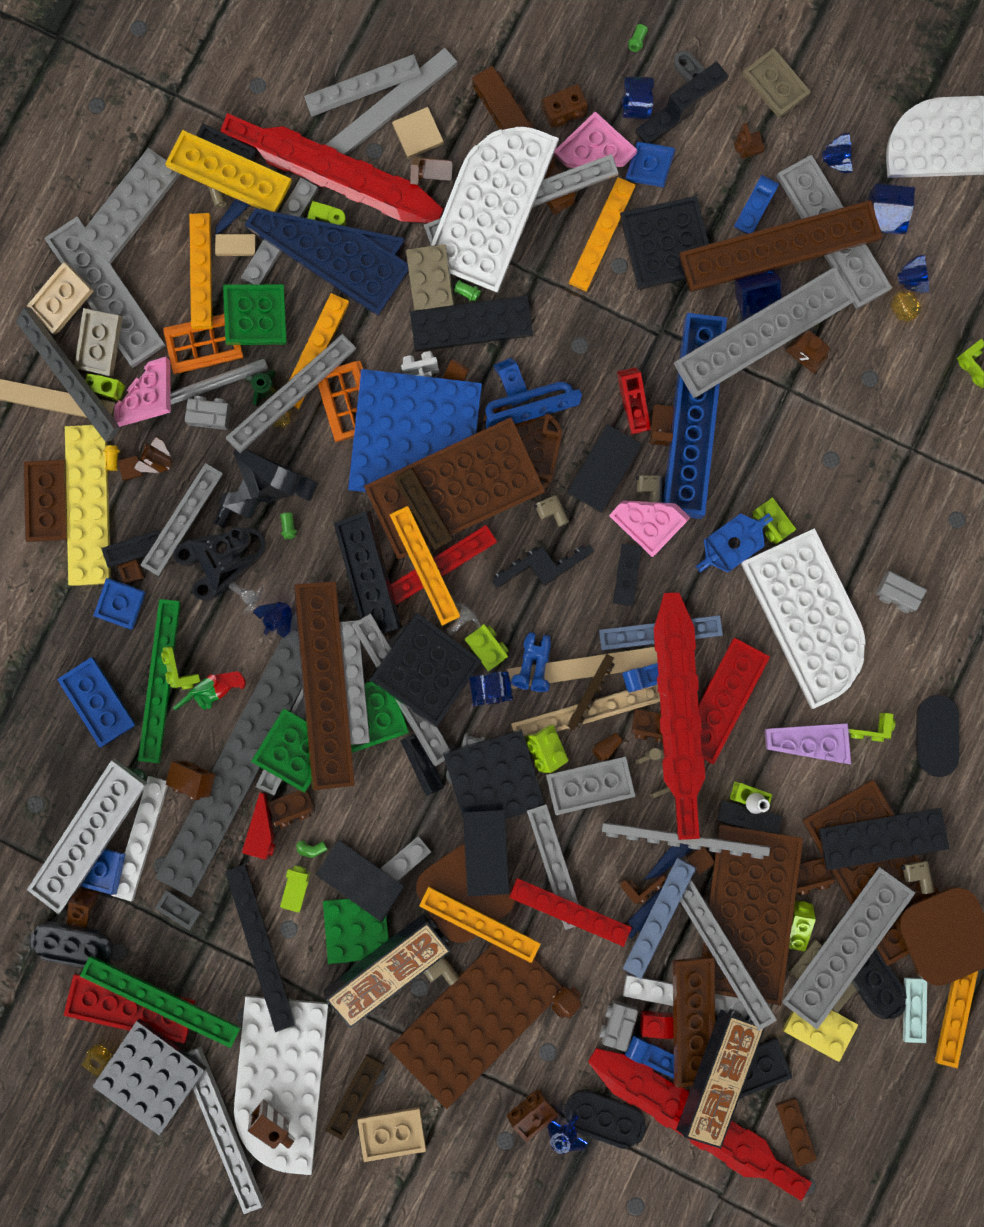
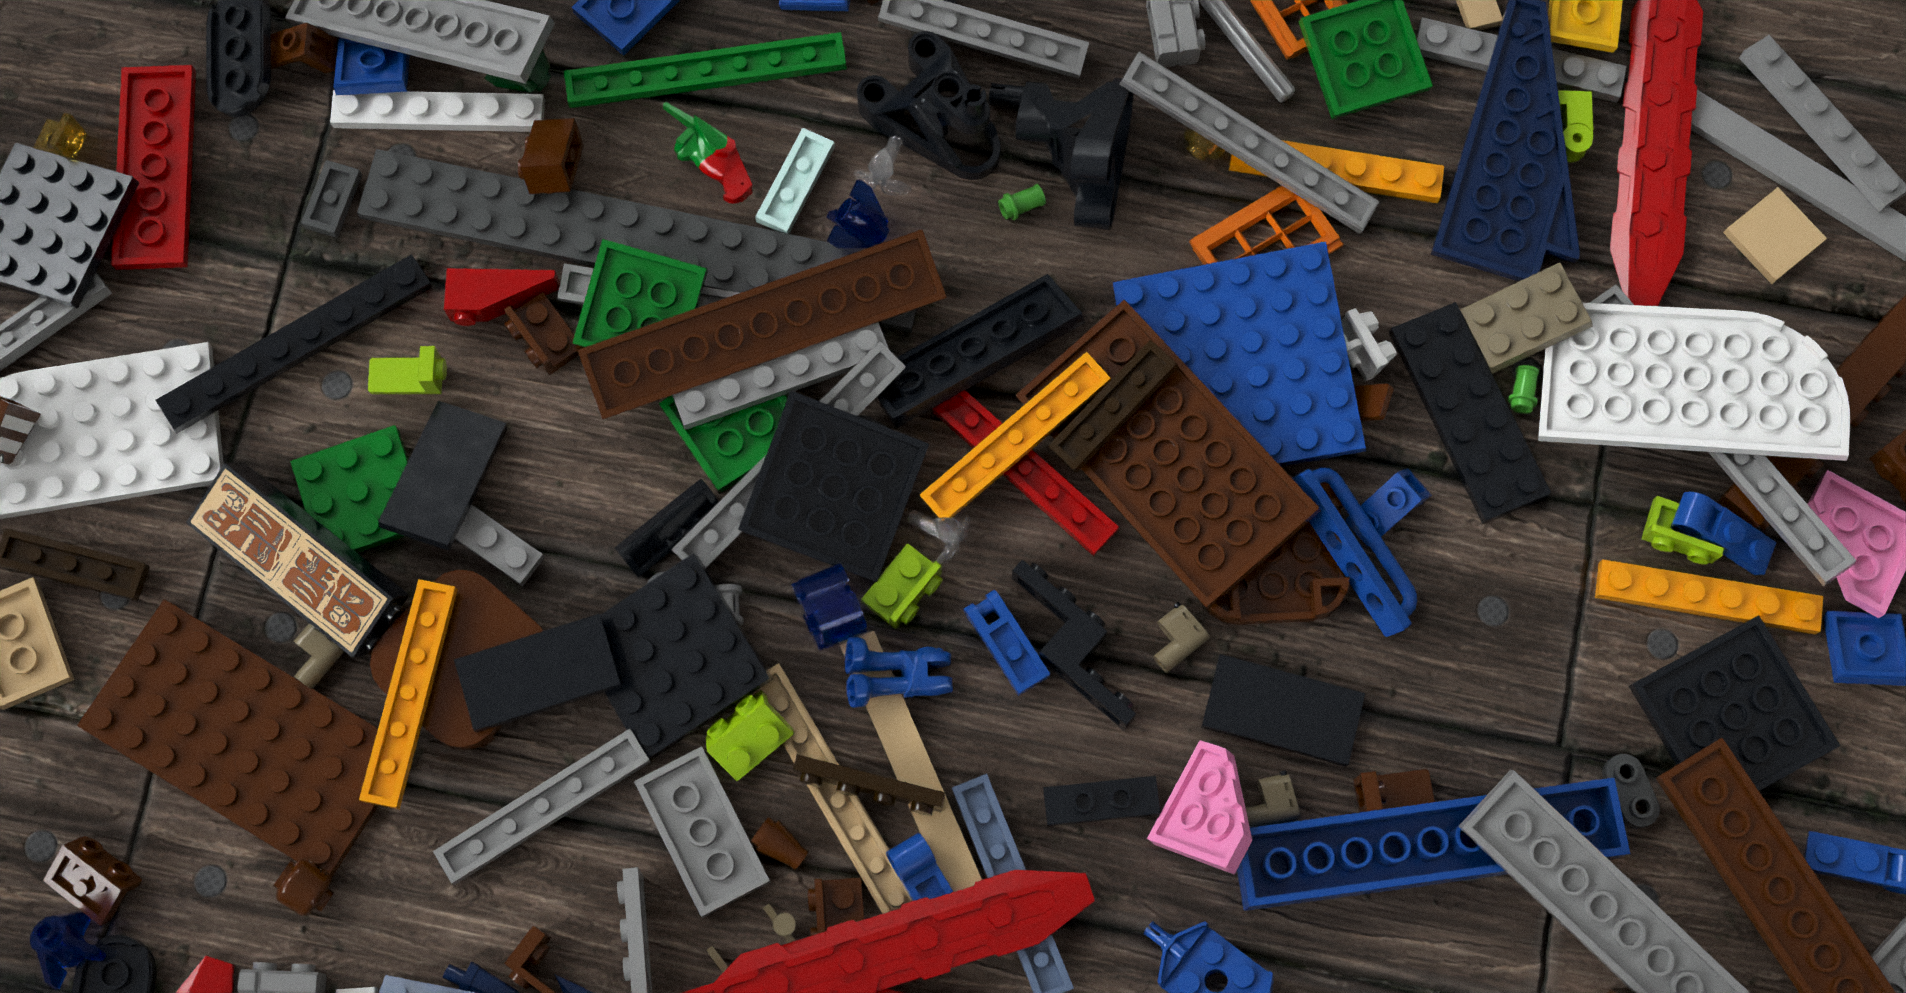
camera: 75 degrees right, 10 degrees down
(160, 1001) = (171, 208): green plate -> none
(172, 678) = (713, 108): lime bracket -> none
(241, 647) = (795, 181): none -> light aqua plate
(267, 388) = (1249, 97): dark green brick -> none
(310, 851) = (476, 383): bright green arm -> none
(430, 169) = (1717, 268): bracket -> none
(532, 600) = (1007, 643): none -> blue plate
(565, 233) = (1664, 539): none -> lime bracket
(570, 912) = (465, 851): red plate -> none
(572, 215) = (1713, 523): none -> blue plate
(634, 399) = (1423, 729): red slope -> none
(691, 306) = (1632, 790): none -> dark grey plate
(757, 292) = (1700, 903): clear blue slope -> none

